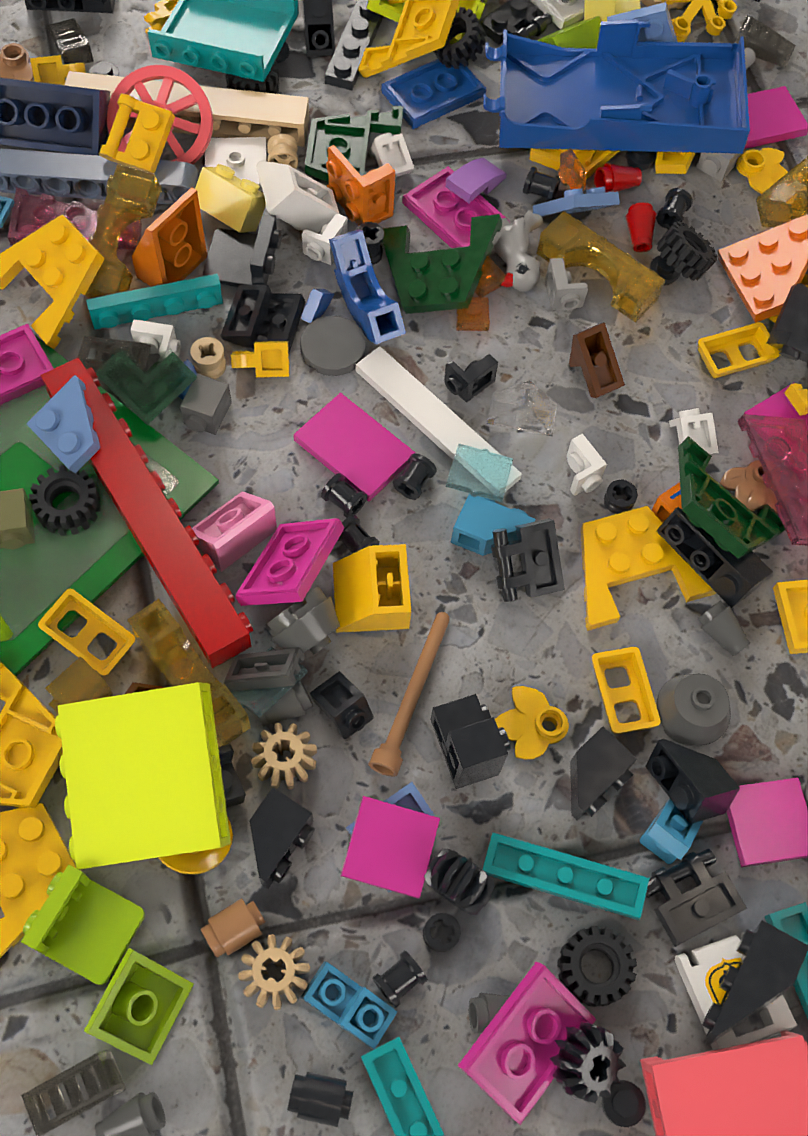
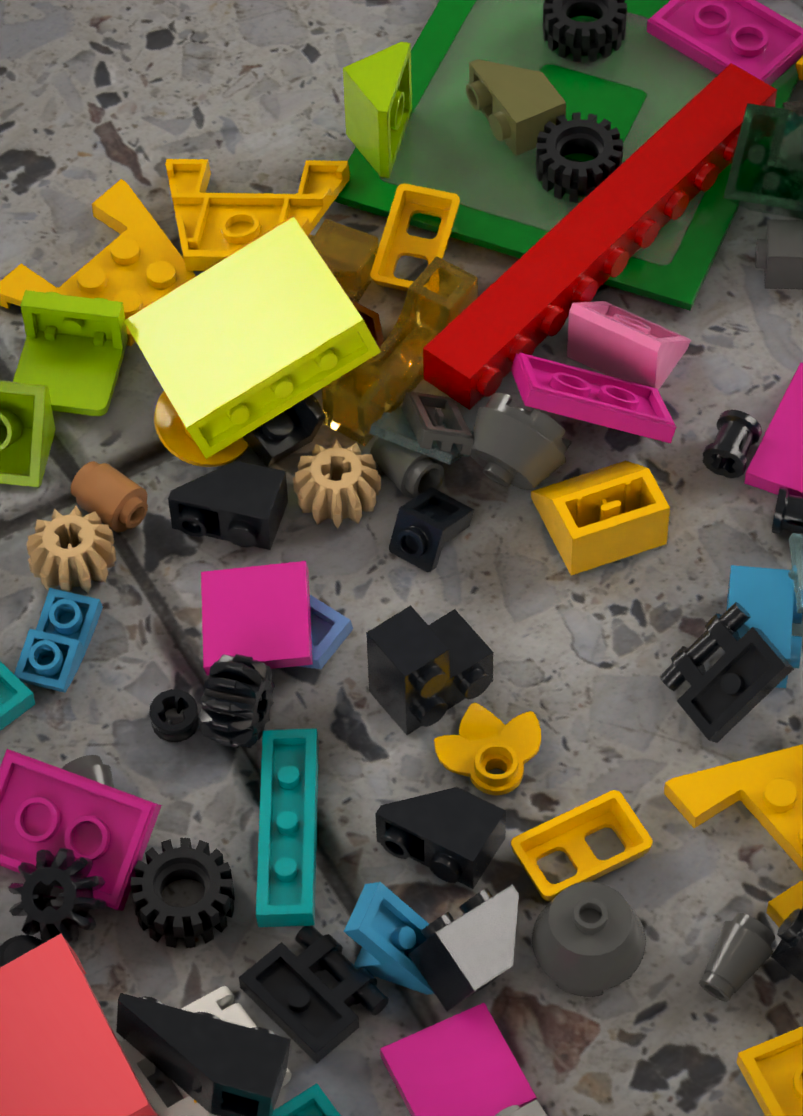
camera: 80 degrees right, 10 degrees down
(67, 425) = (666, 109): medium blue wing -> none
(354, 536) = (674, 474): black bush -> none
(387, 757) = (381, 595): medium nougat piece -> none
(400, 979) = (101, 680): black bush -> none

